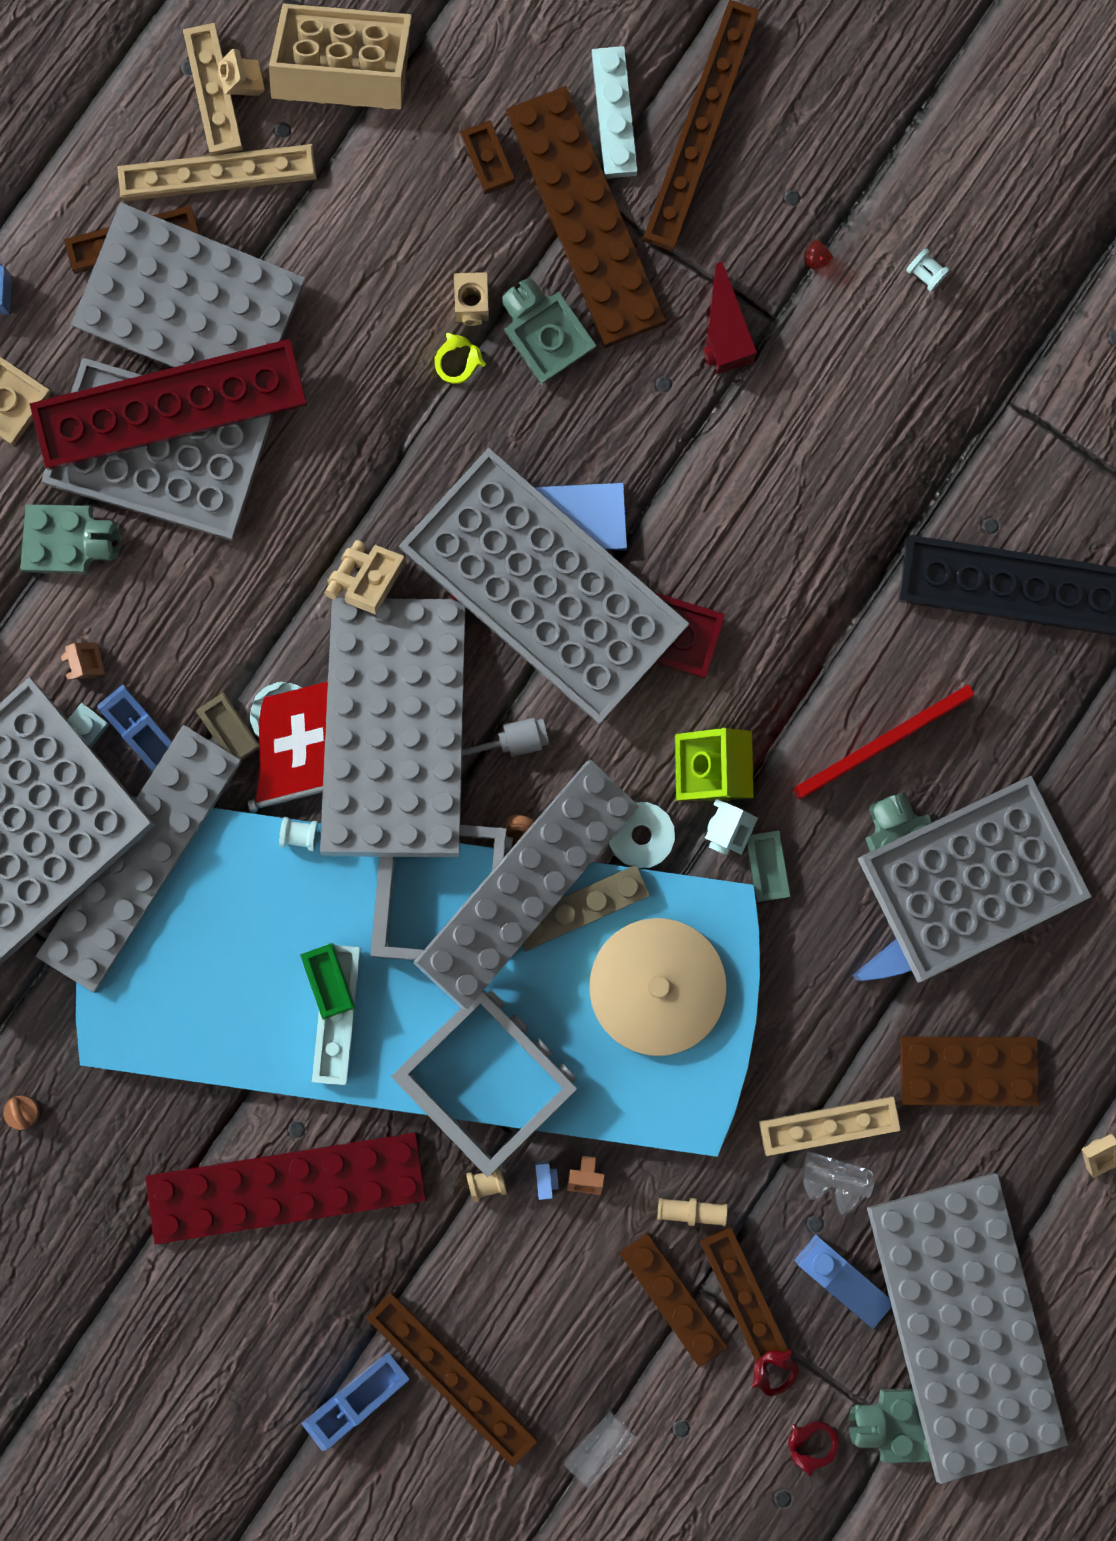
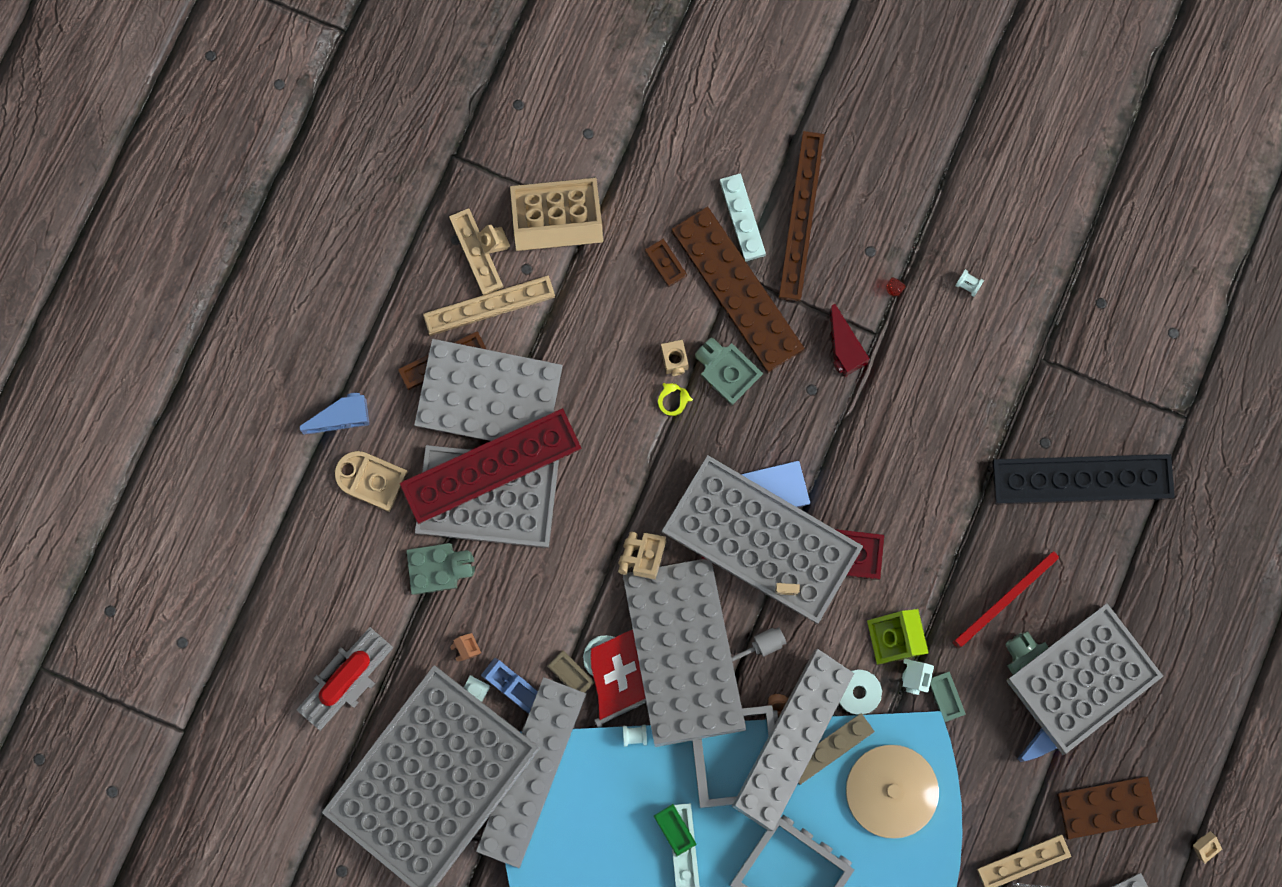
camera: 10 degrees left, 5 degrees down
(563, 664) = (787, 589): none -> tan tile

